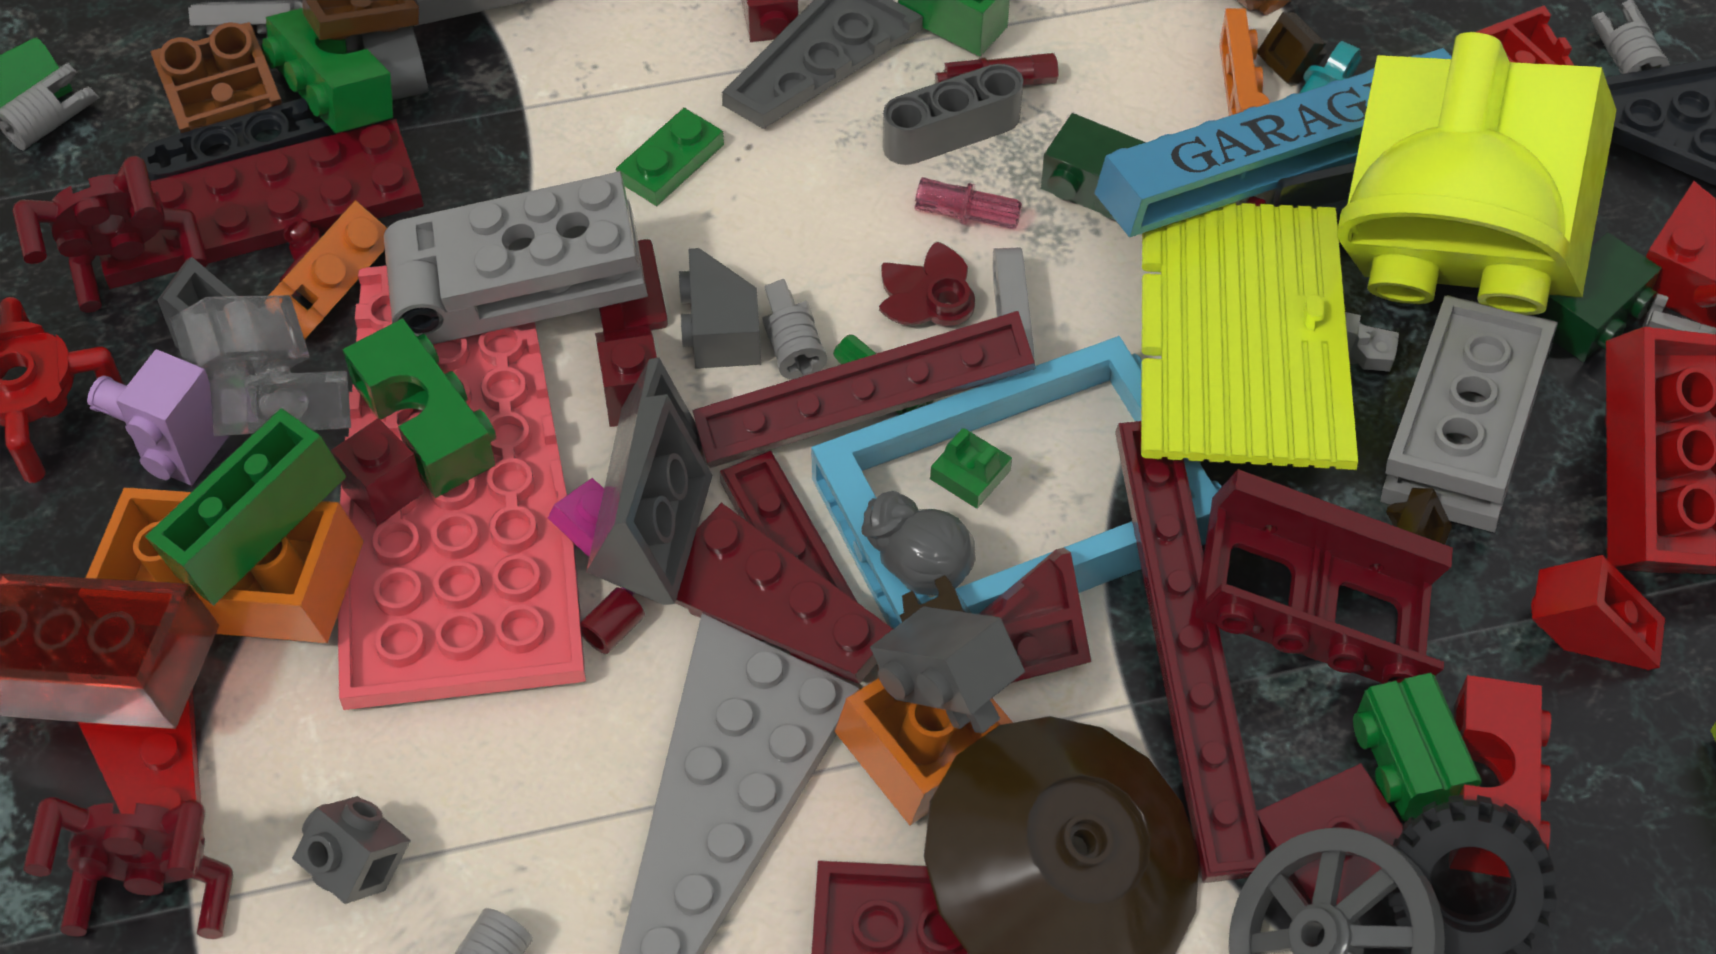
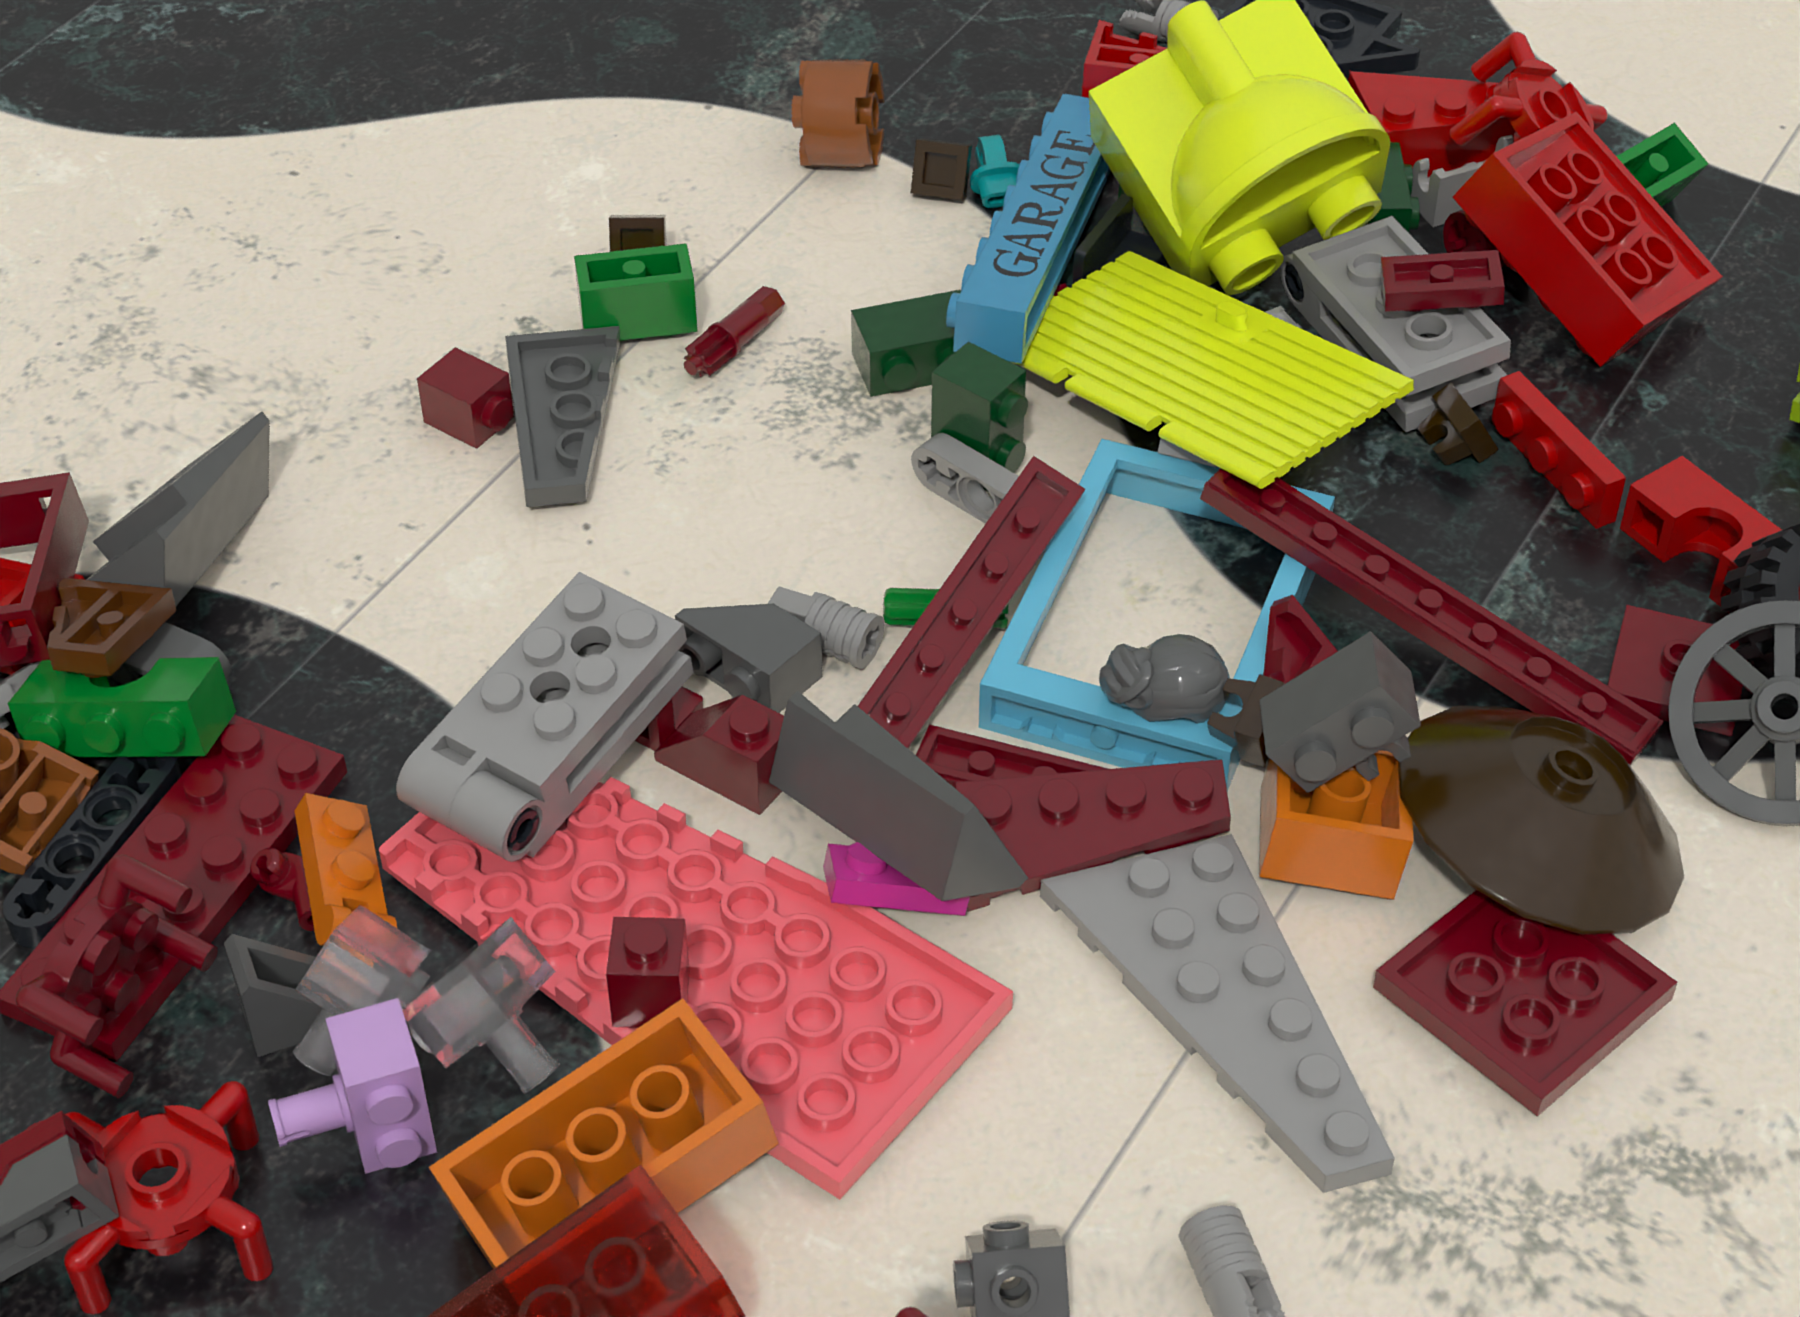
camera: 45 degrees left, 10 degrees down
(246, 506) = (629, 1050): green brick -> none
(402, 372) = (559, 882): green arch -> none
(611, 620) = (976, 939): dark red hinge -> none
(670, 156) = (529, 571): green plate -> none
(921, 292) = (890, 521): dark red plate -> none
(952, 114) = (741, 382): dark grey beam -> none
(967, 203) = (837, 440): clear pink axle -> none
(970, 468) = (1124, 603): green tile -> none
(1056, 254) = (981, 404): none -> dark green brick
(1237, 51) = (927, 210): orange plate -> none
(1323, 550) = (1438, 473): dark red window -> none
(1413, 744) = (1647, 562): green brick -> none
(1466, 603) = (1558, 450): none -> red plate
(1503, 402) = (1442, 281): none -> dark red plate
(1598, 613) = (1636, 394): red slope -> none

